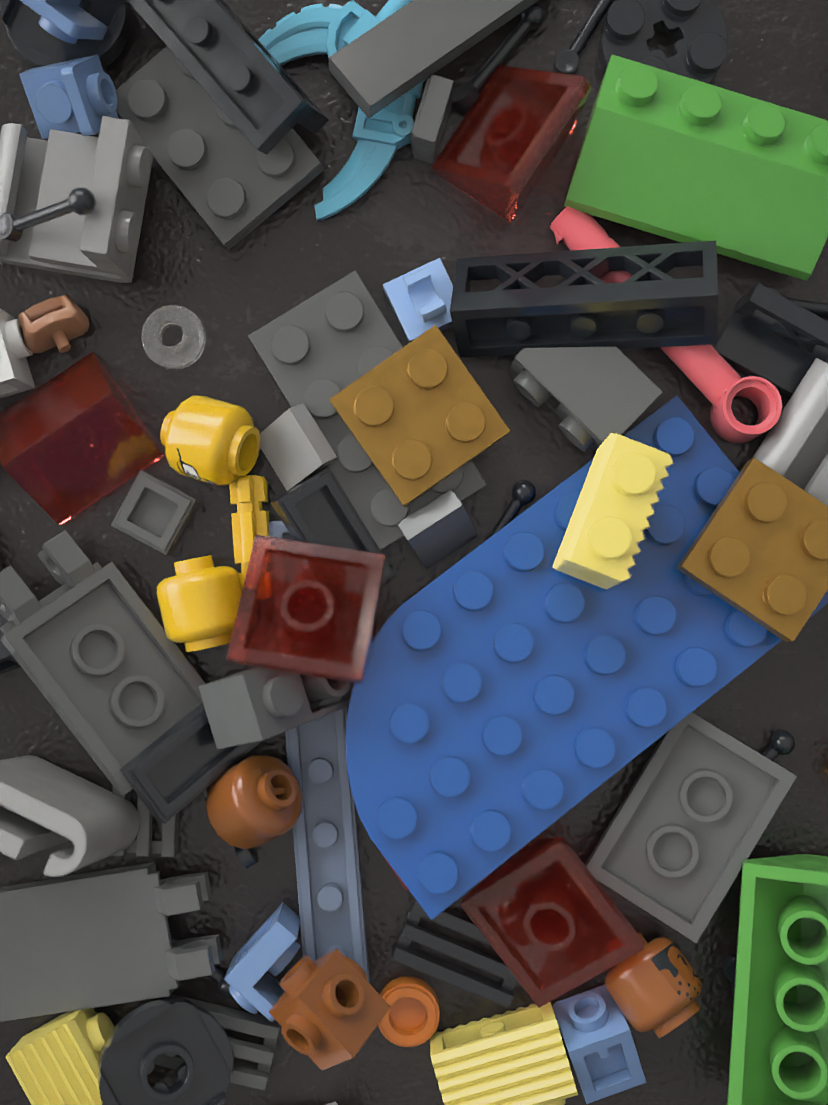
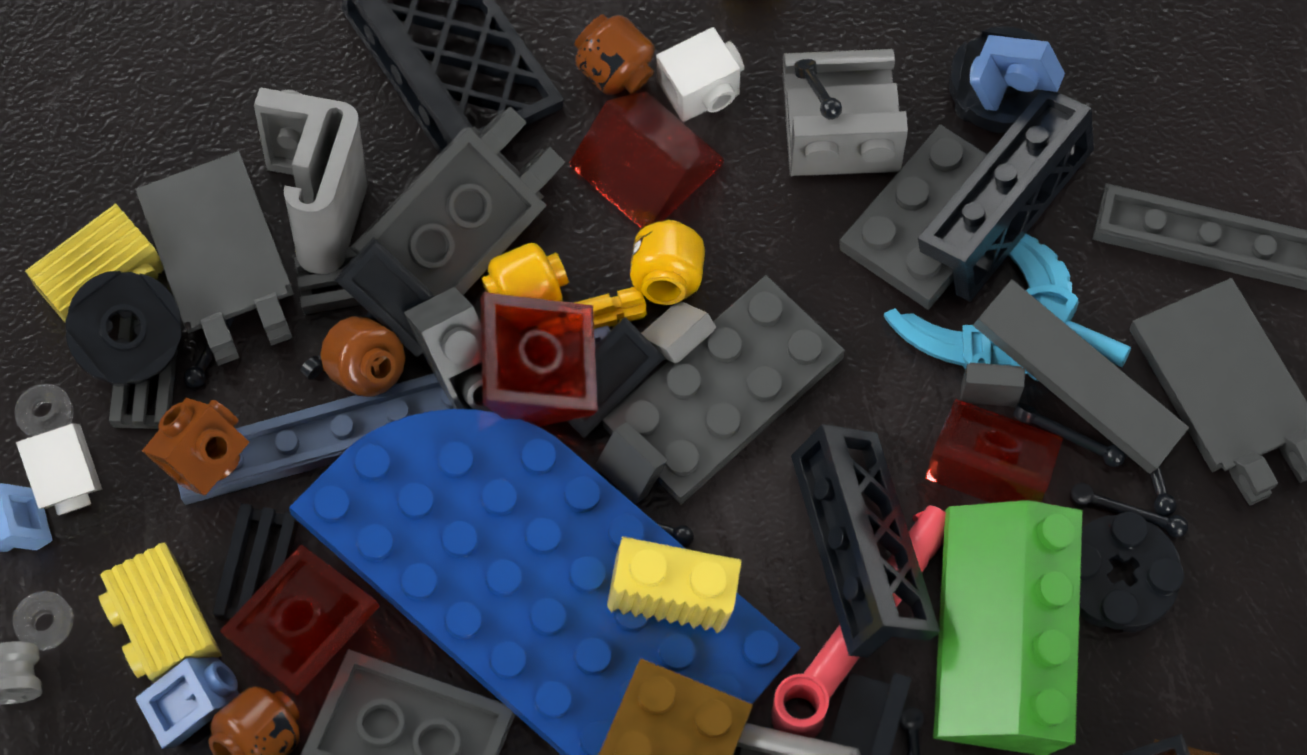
camera: 80 degrees right, 20 degrees down
(52, 324) = (738, 122): nougat piece -> none
(70, 96) = (930, 95): medium blue bracket -> none
(155, 513) = (596, 235): dark grey tile -> none
(183, 353) = (750, 231): clear plate -> none
(267, 950) = (228, 389): medium blue bracket -> none
(412, 1013) = (194, 531): orange tile -> none
(419, 415) = (725, 422): pearl gold plate -> none
(421, 299) = (834, 406): light blue tile -> none
(588, 387) = (786, 566): dark grey slope -> none

